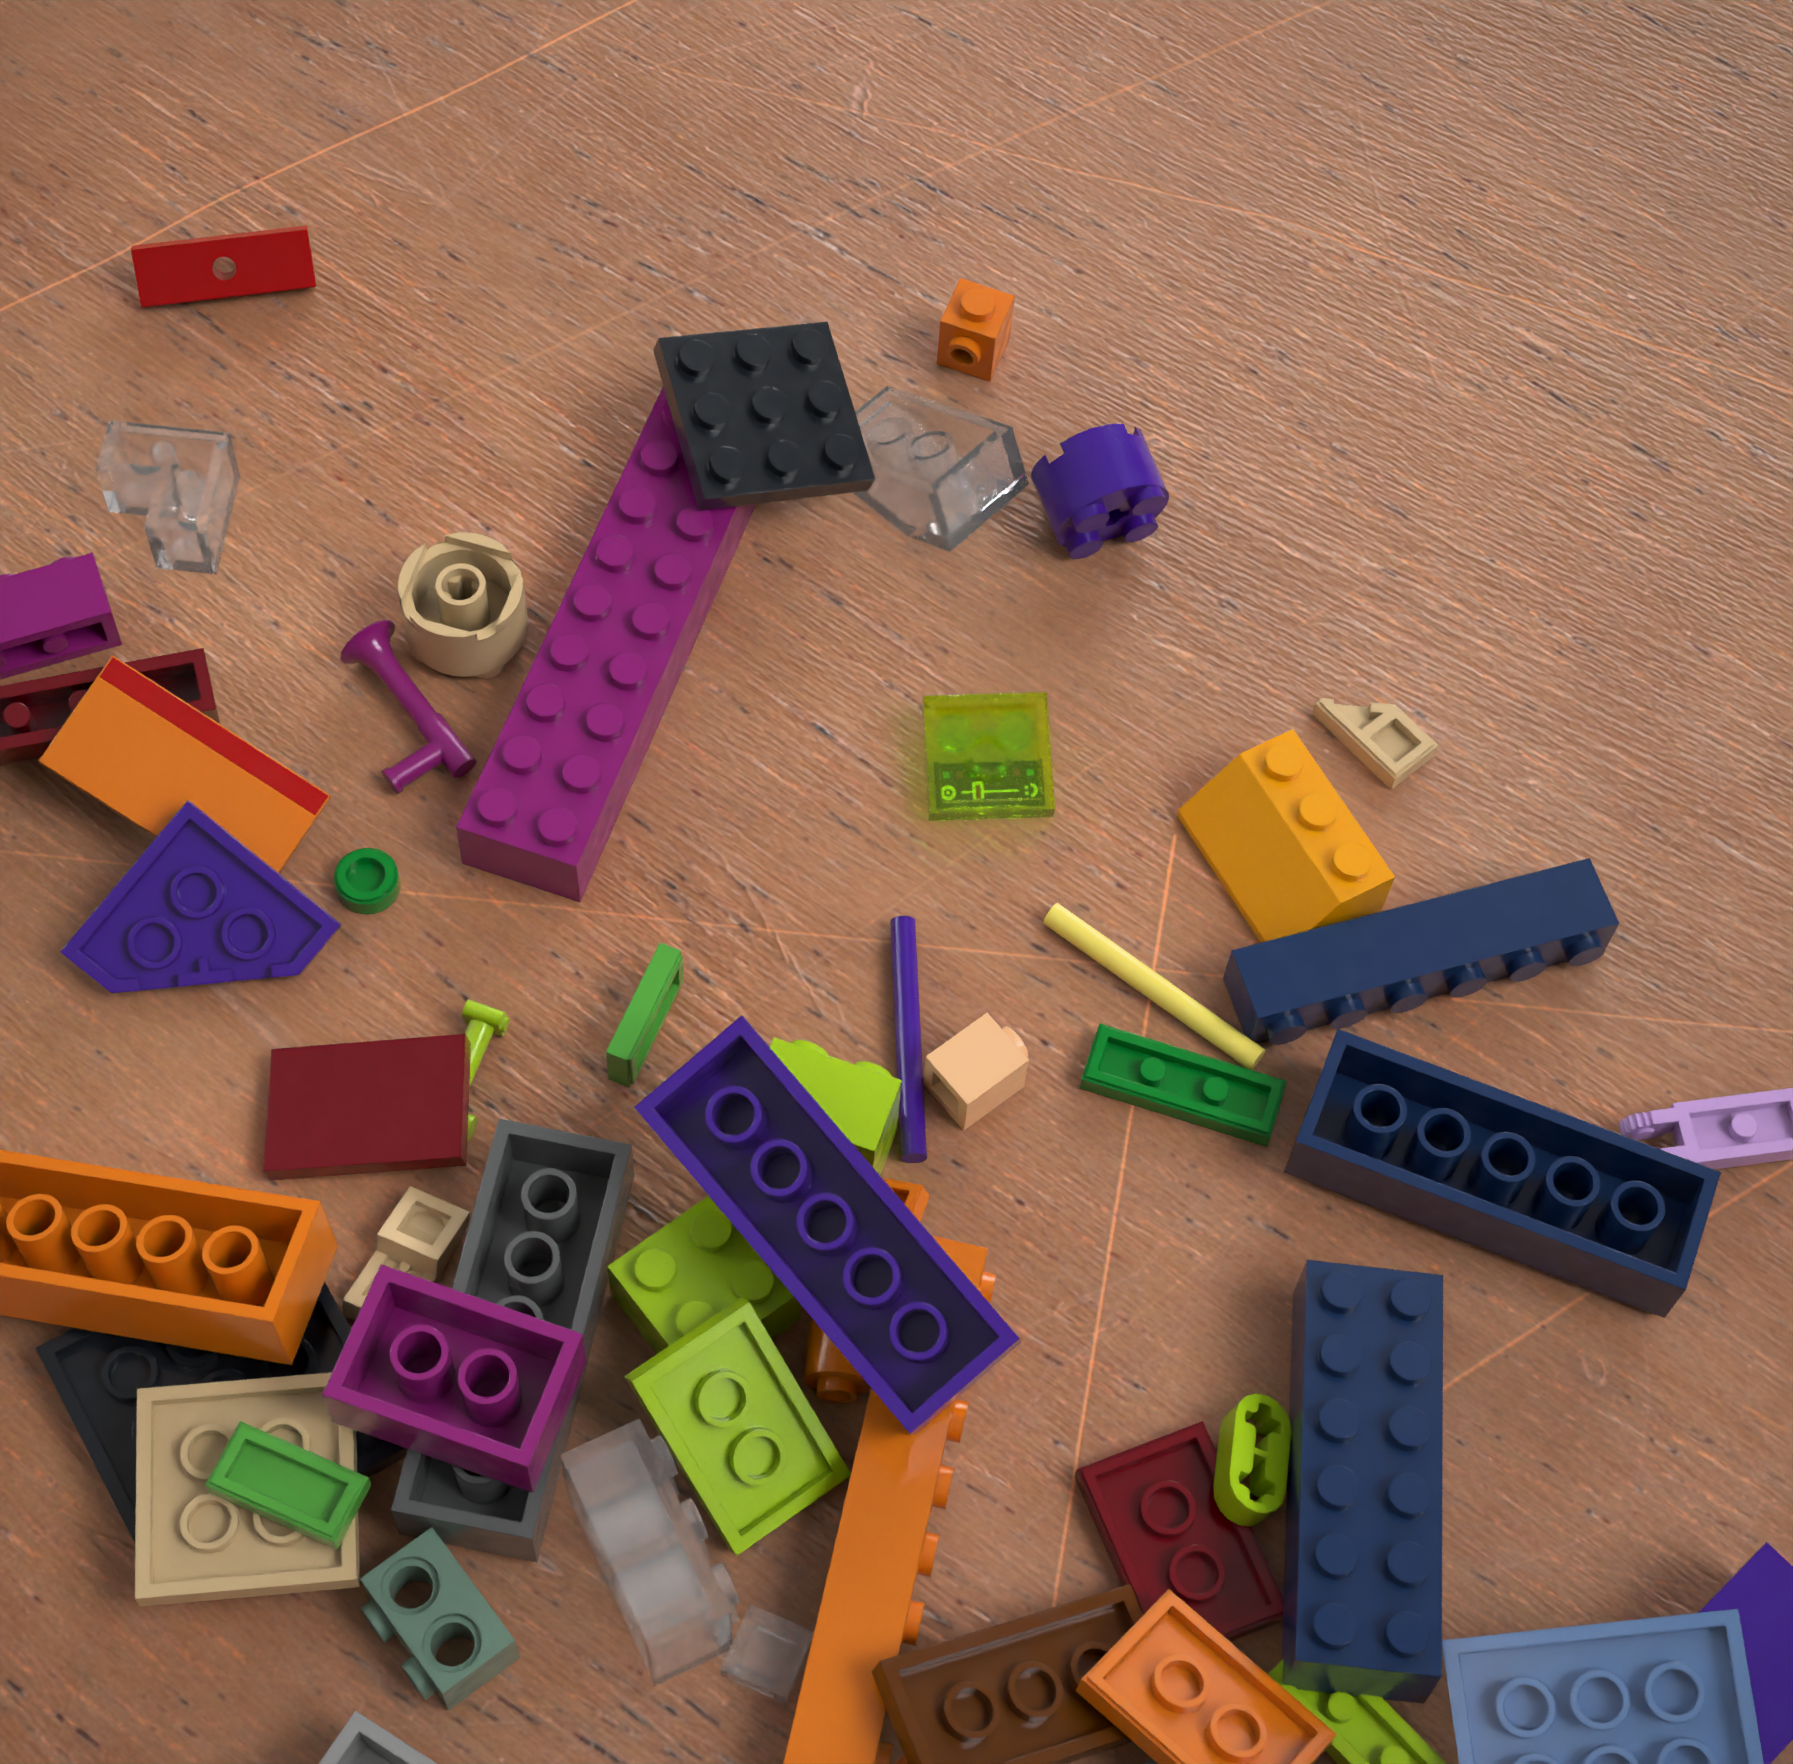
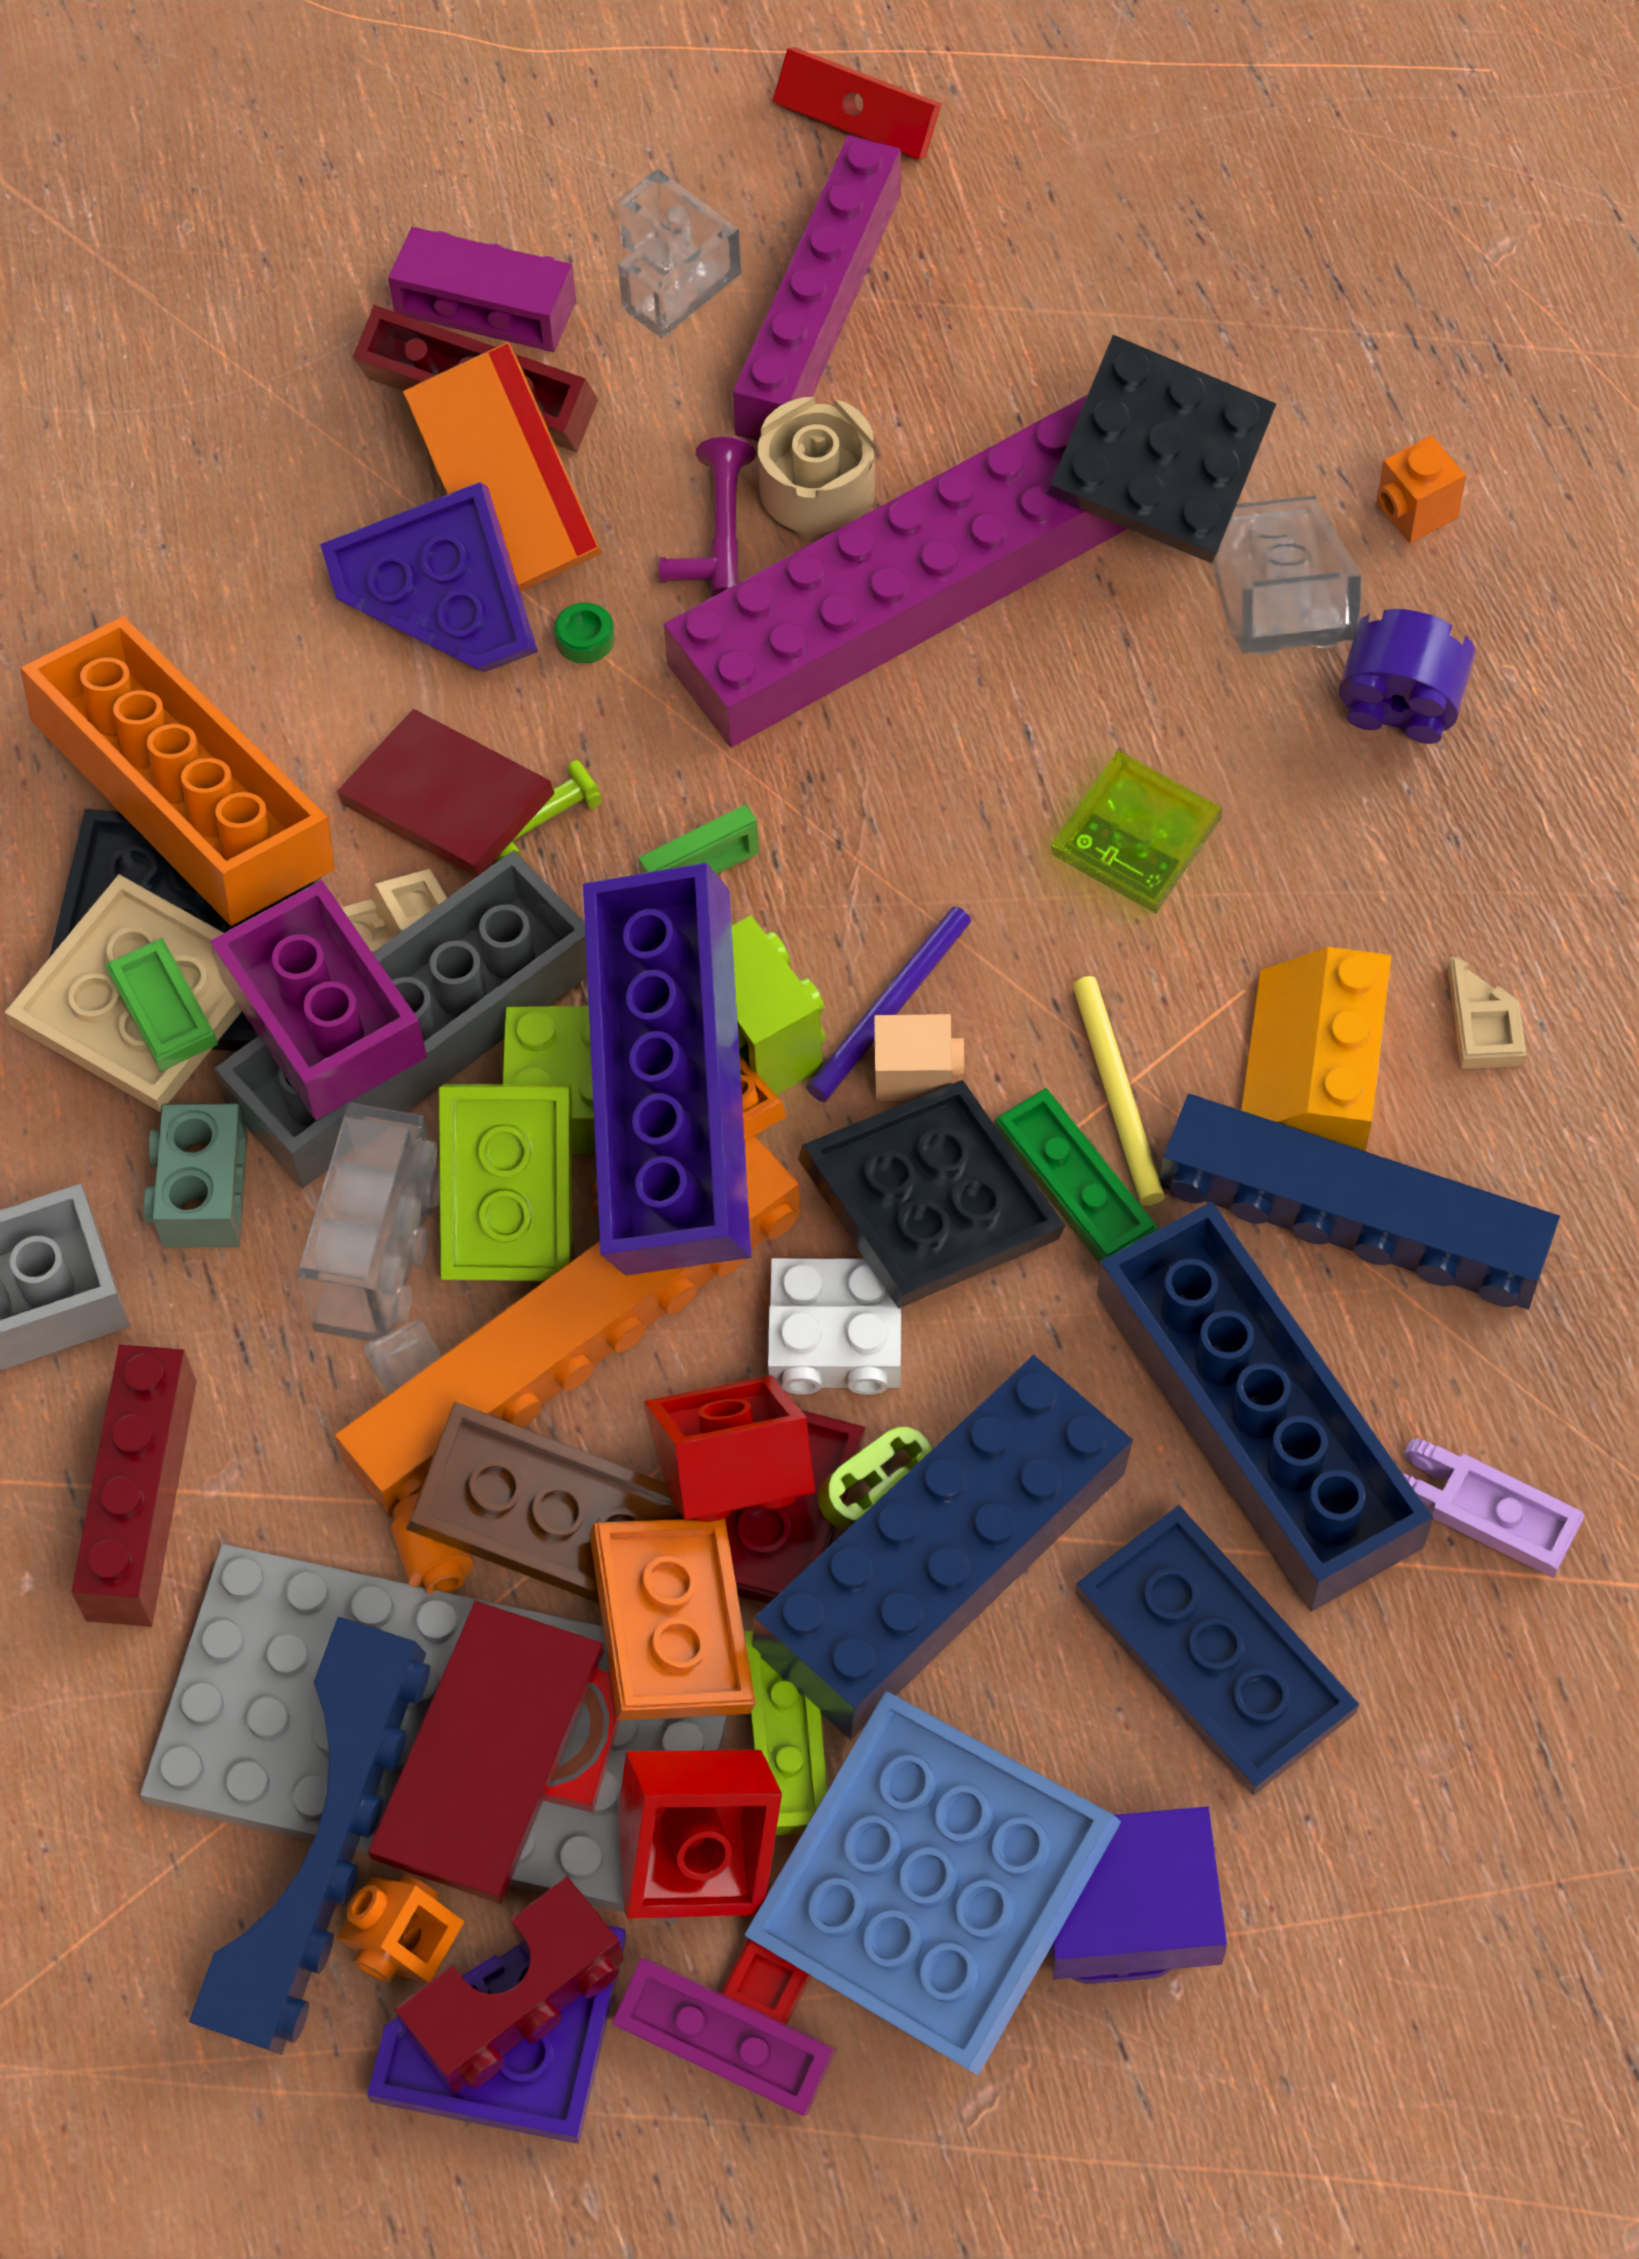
camera: 45 degrees right, 0 degrees up
(332, 451) = (819, 283): none -> magenta brick
(1092, 1180) = (930, 1193): none -> black plate
(1104, 1350) = (832, 1327): none -> white plate
(1129, 1521) = (731, 1448): none -> red slope
(1629, 1403) = (1216, 1649): none -> dark blue plate

